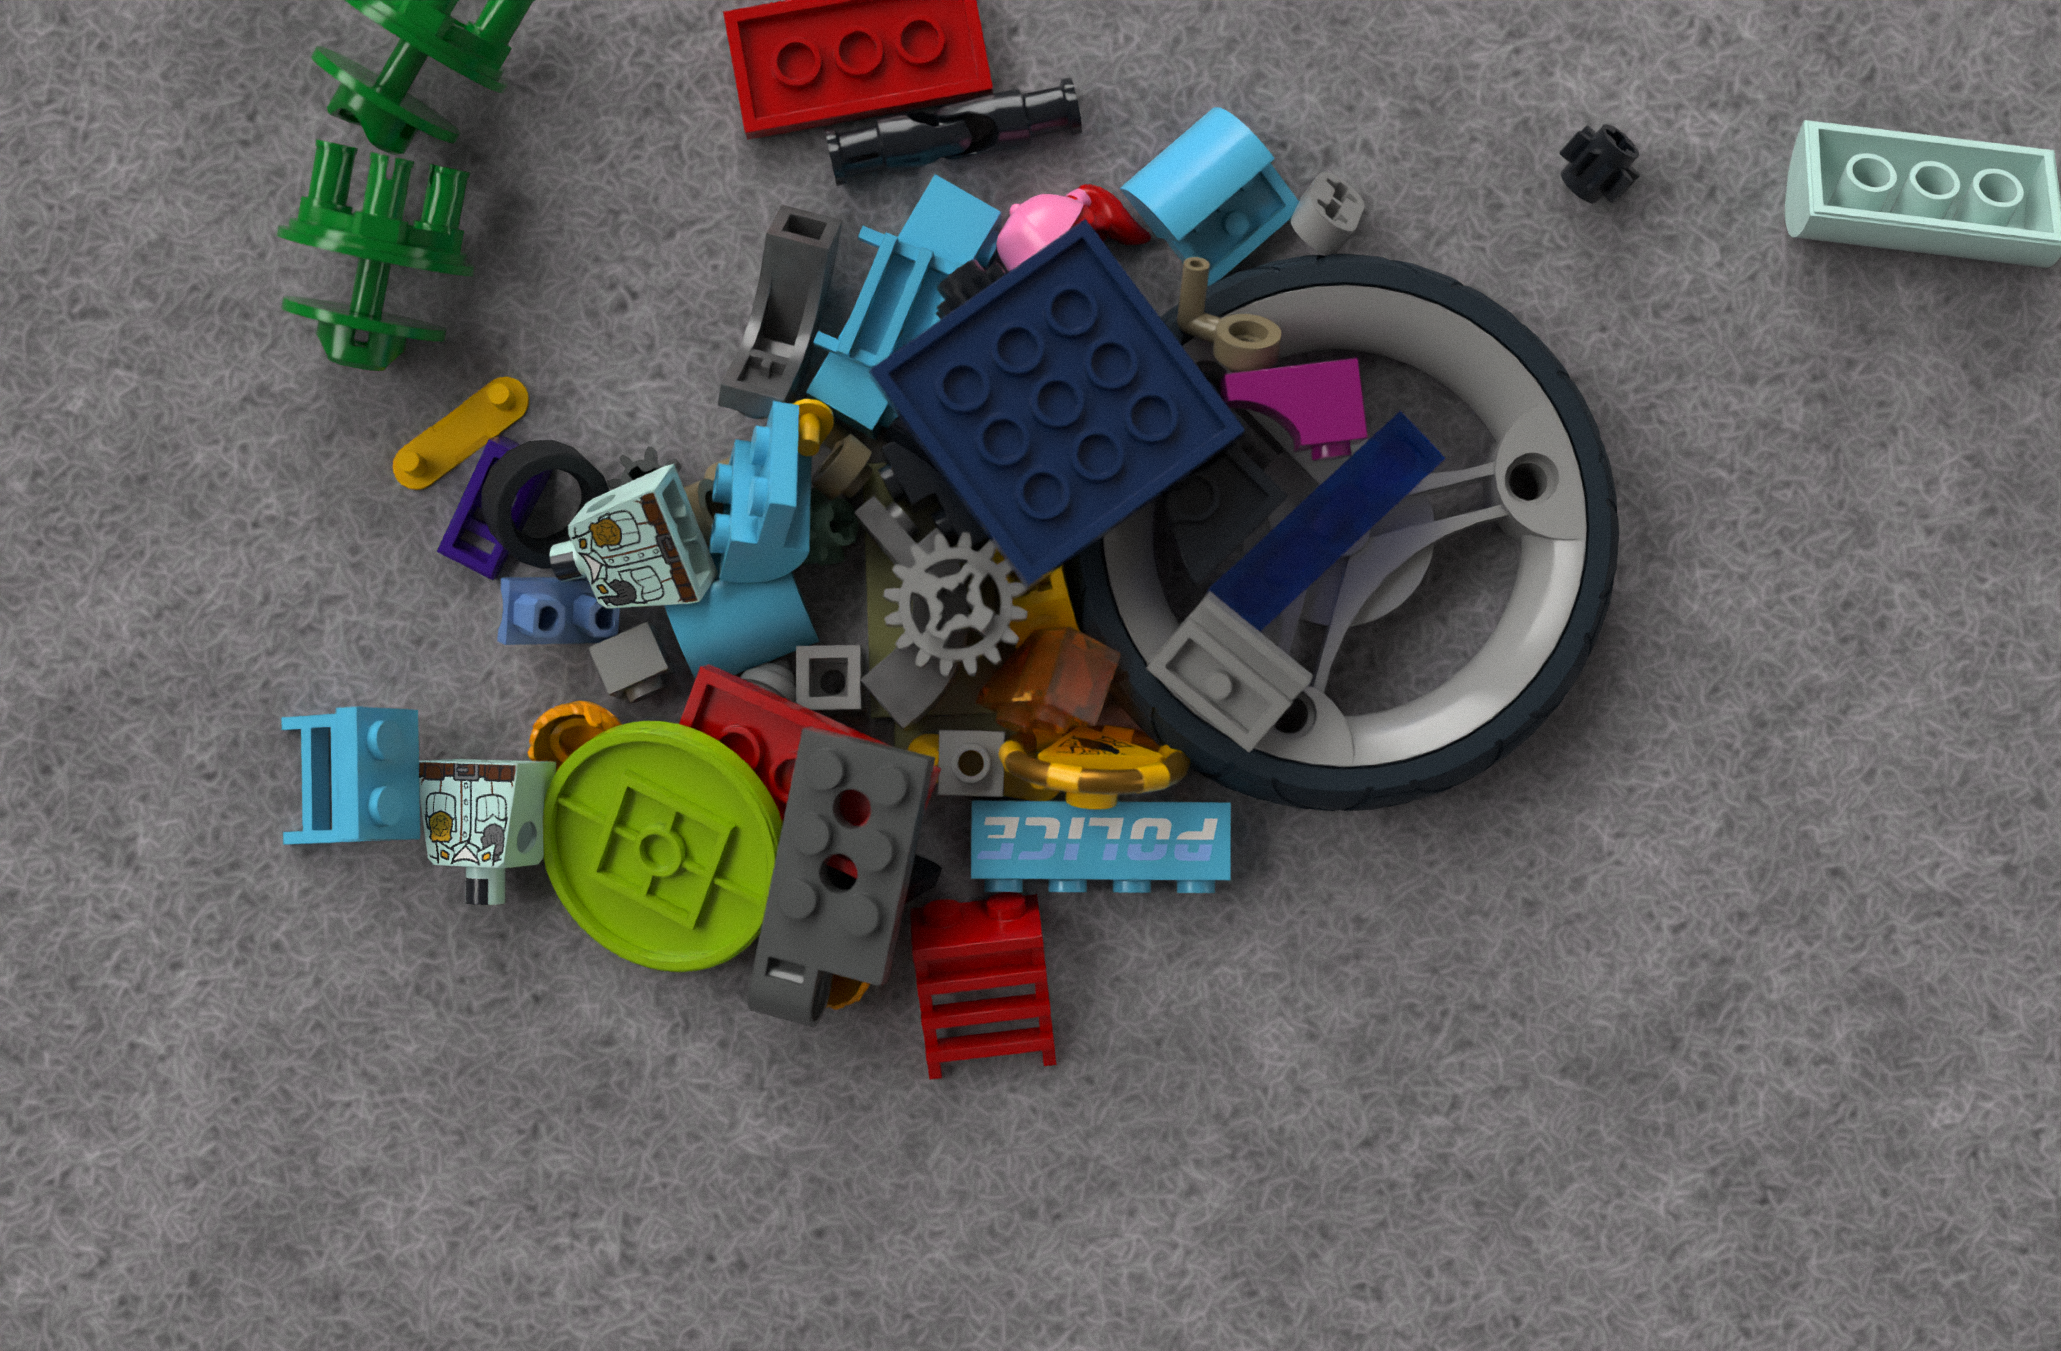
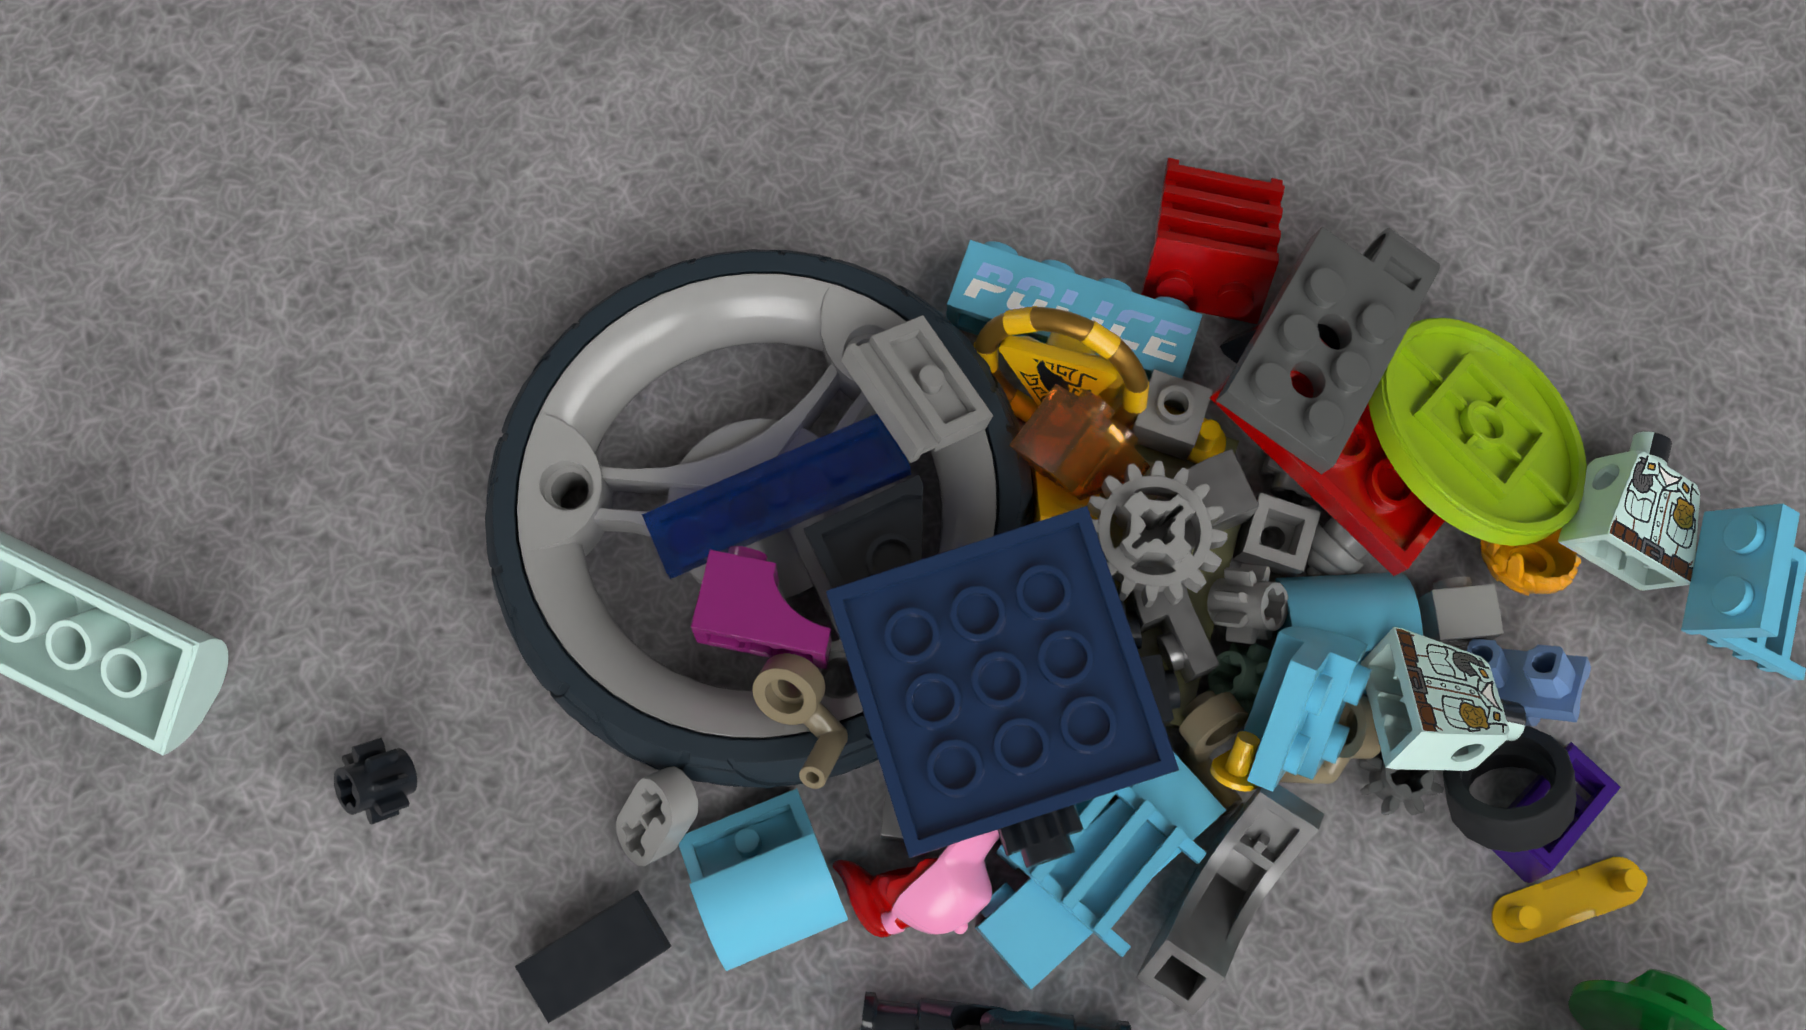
camera: 155 degrees left, 10 degrees down
(841, 594) = (1248, 603): none -> light grey gear
(1337, 80) = (593, 956): none -> black slope

